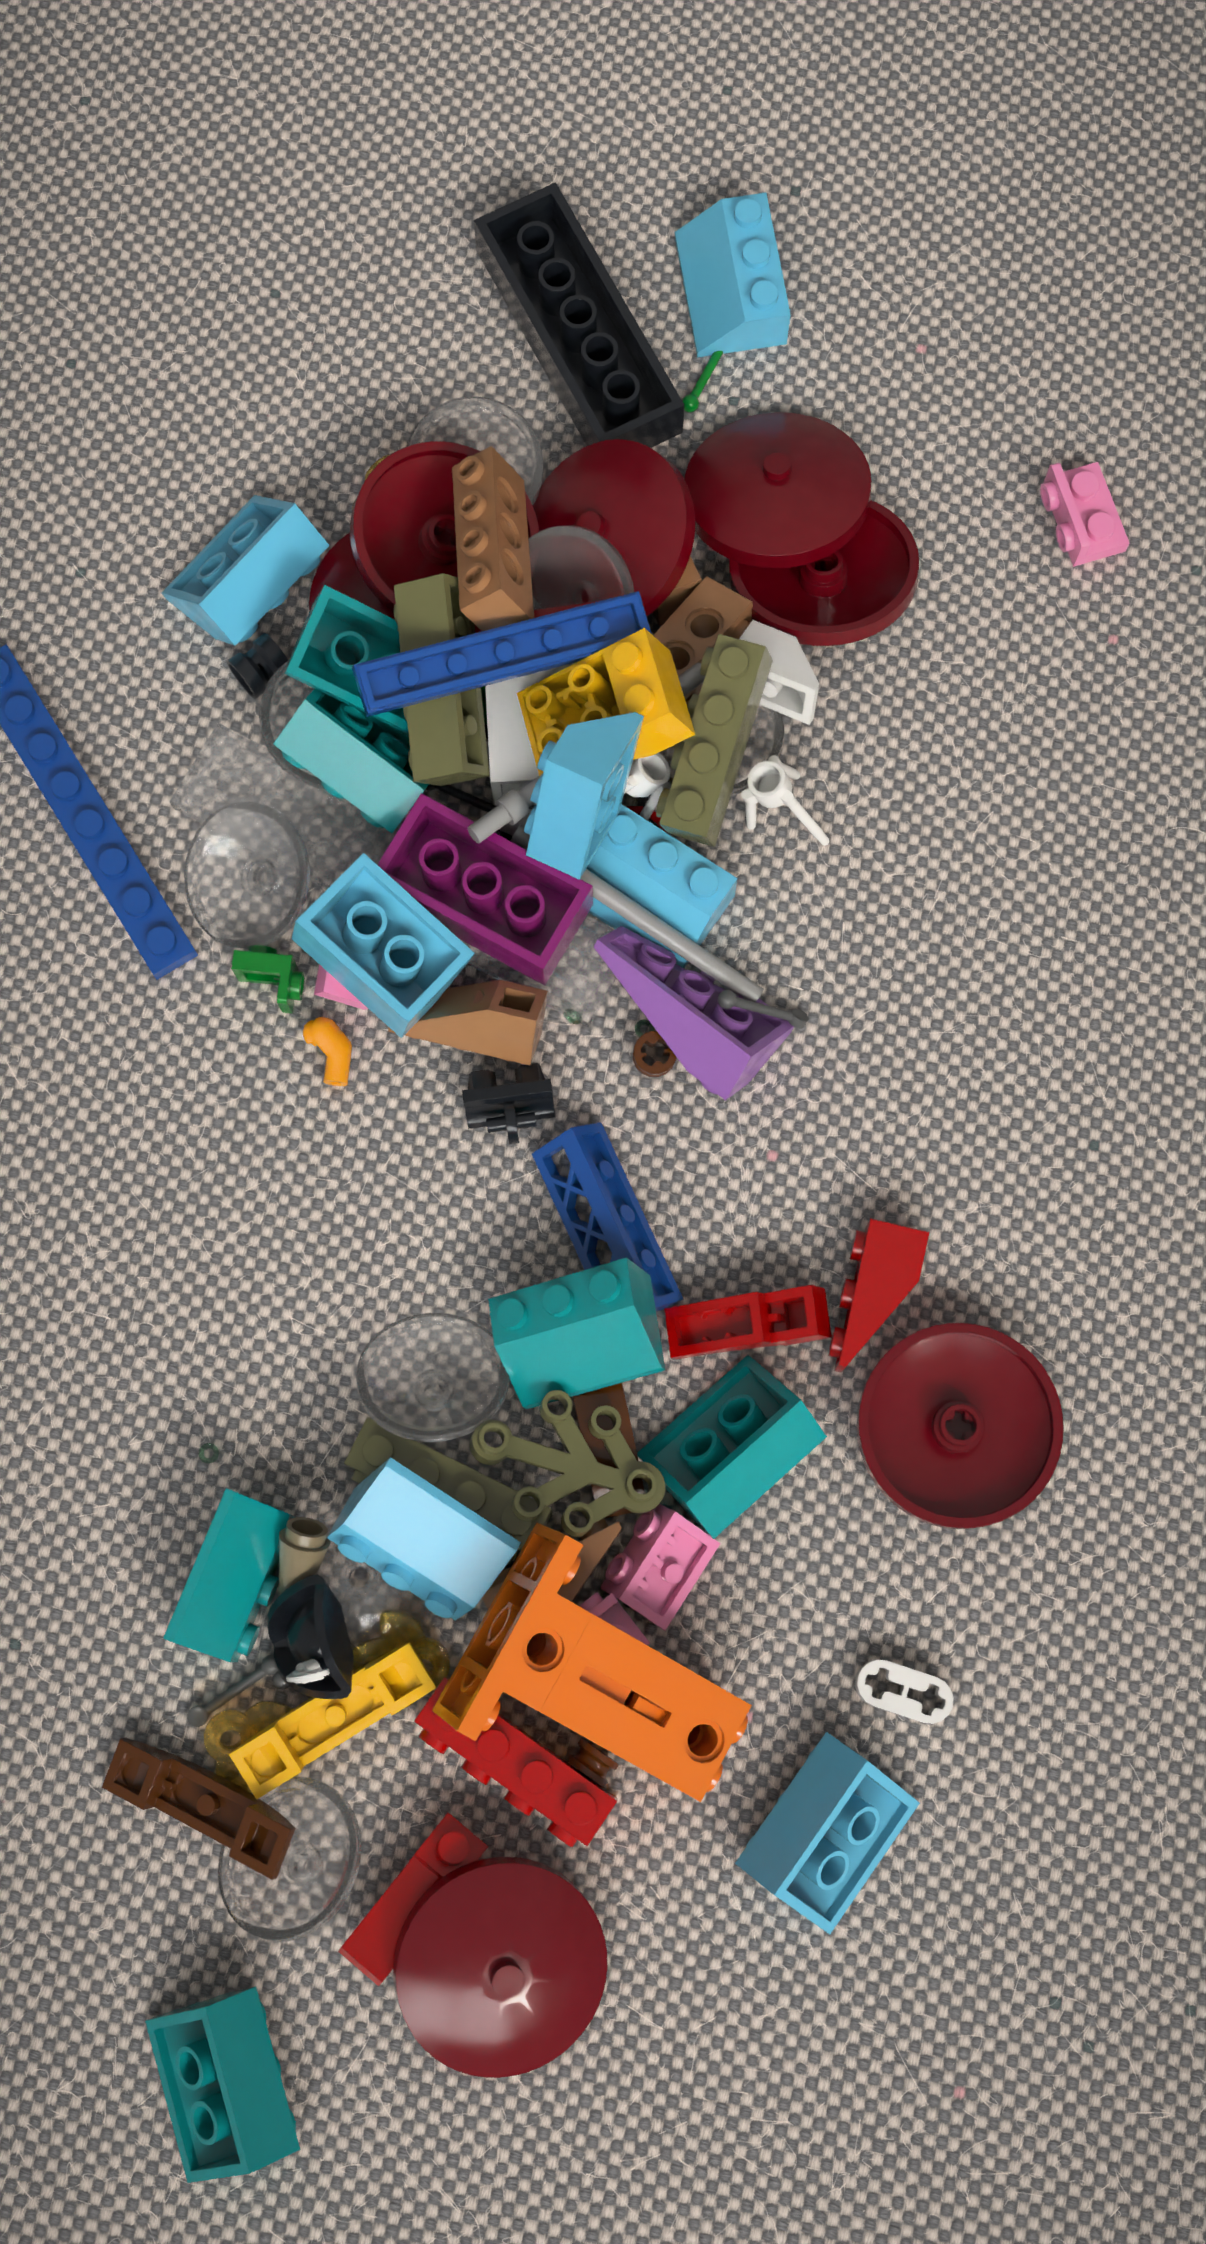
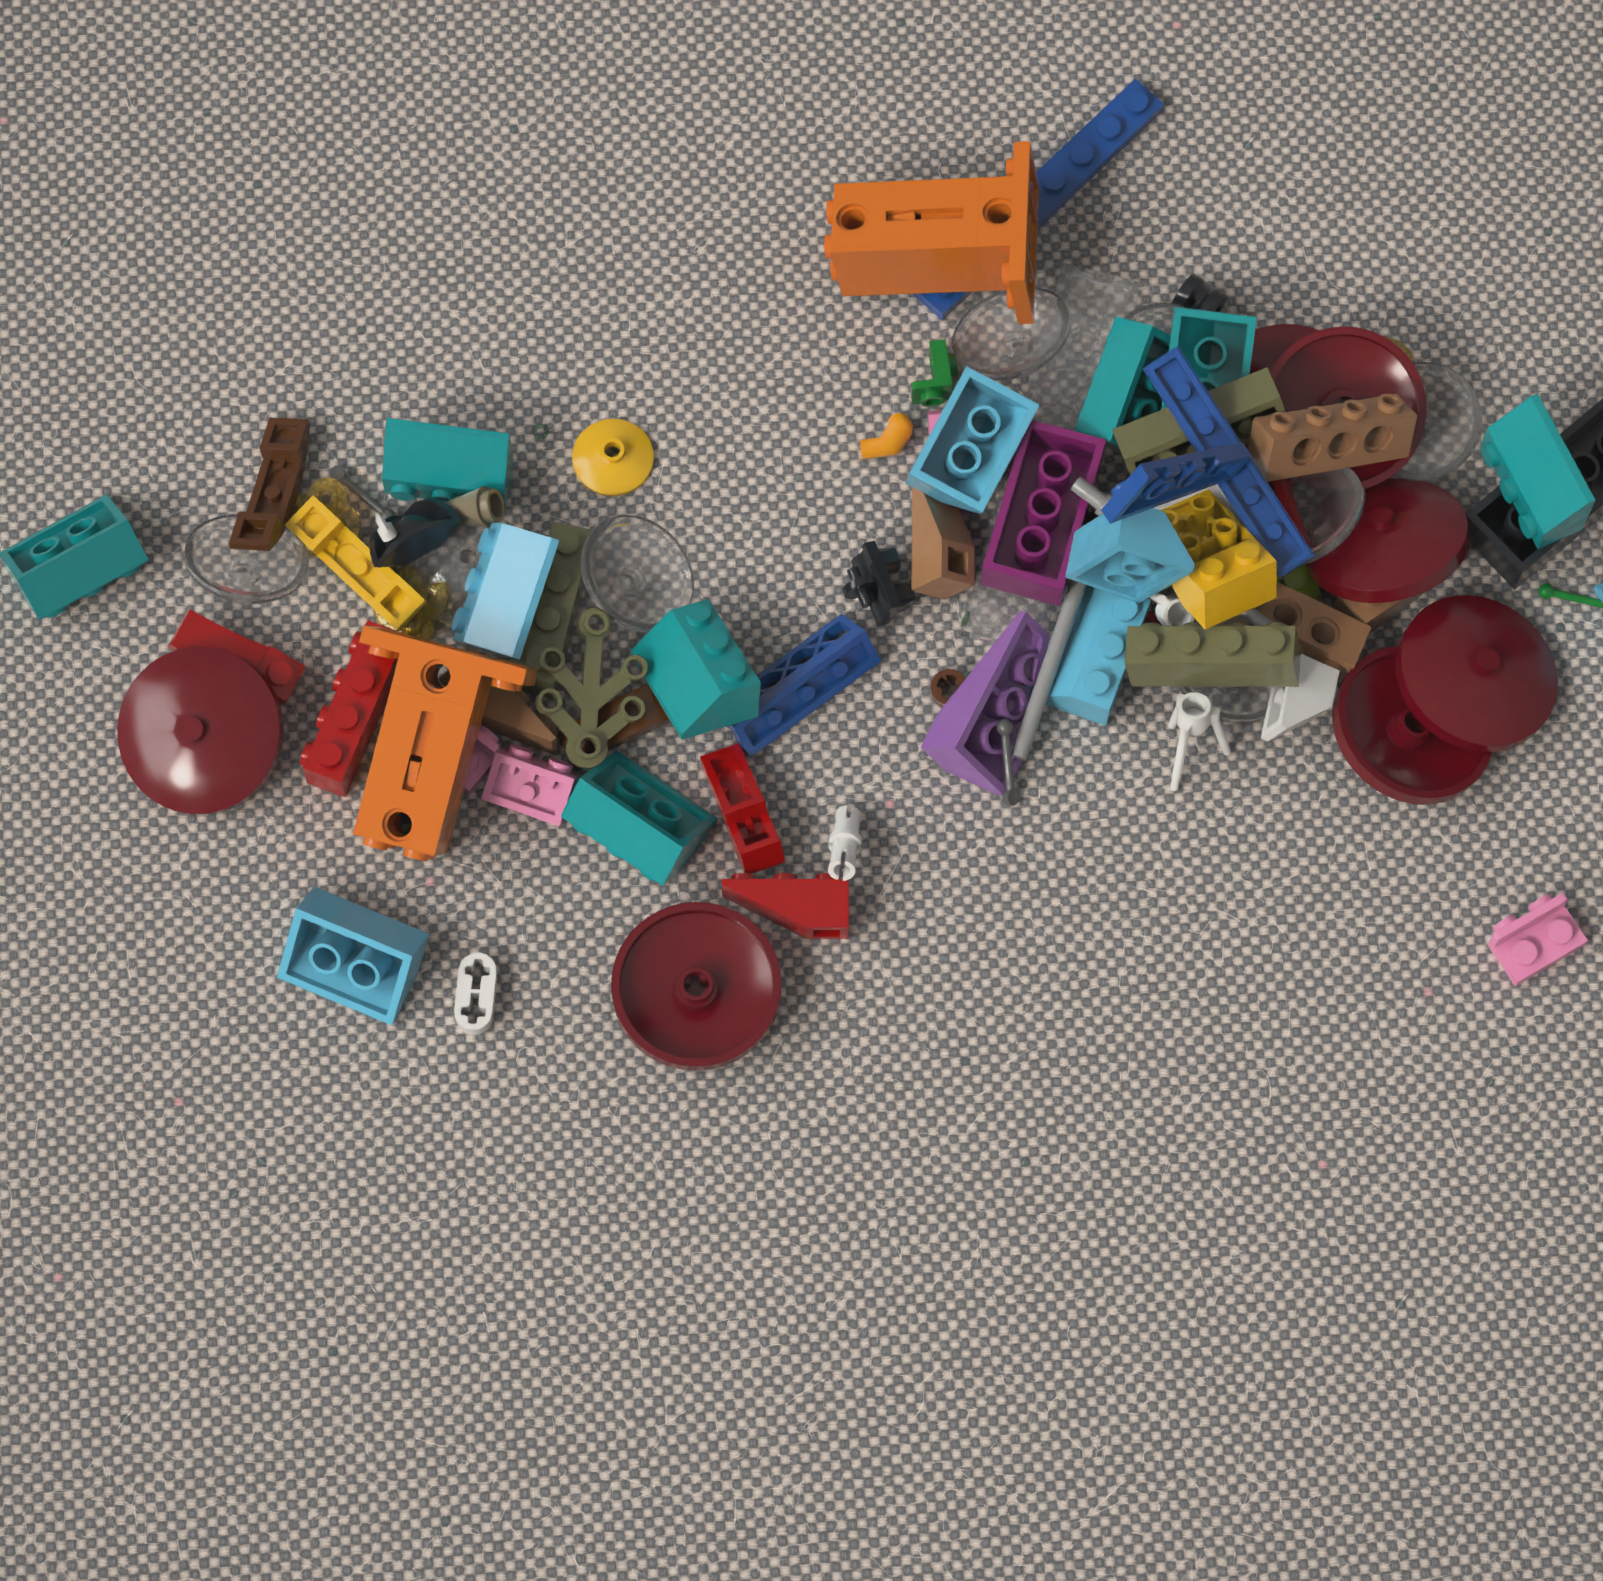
camera: 75 degrees right, 5 degrees down
(108, 919) = (939, 235): none -> orange brick
(247, 569) = (1281, 269): medium azure slope -> none
(285, 1390) = (612, 474): none -> yellow dish
(545, 710) = (1173, 478): none -> blue wing
(586, 343) = (1537, 473): none -> teal slope
(592, 1762) = (362, 766): reddish brown bush -> none
(822, 1213) = (845, 843): none -> white pin

